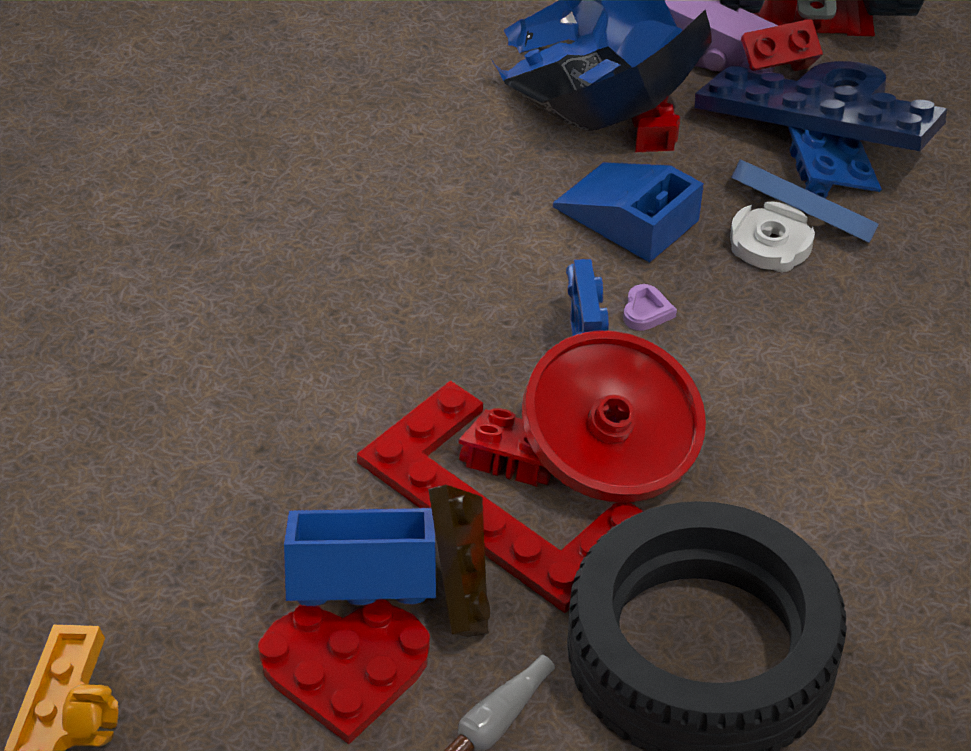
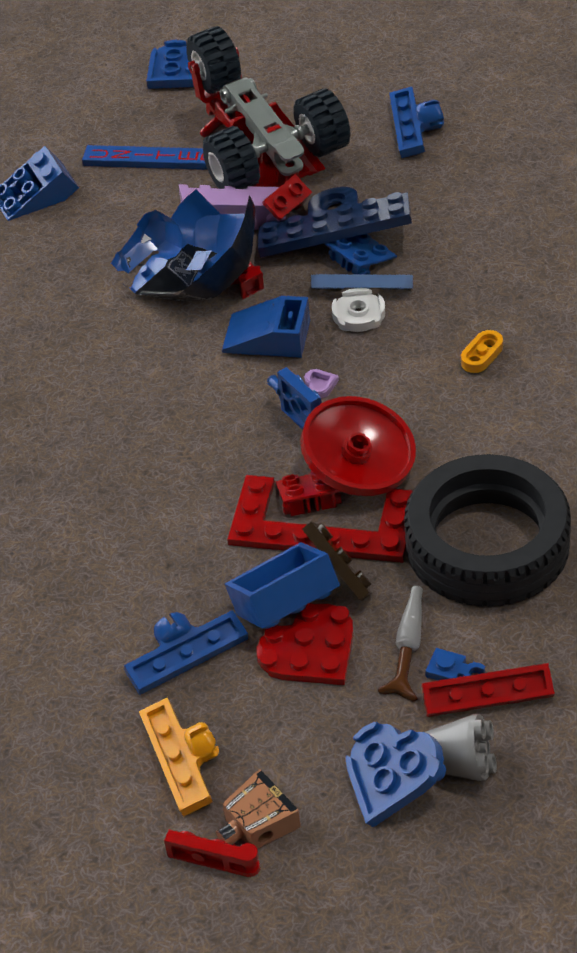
camera: 25 degrees left, 0 degrees up
(179, 571) = (183, 648): none -> blue plate
(895, 373) = (477, 355): none -> light orange plate

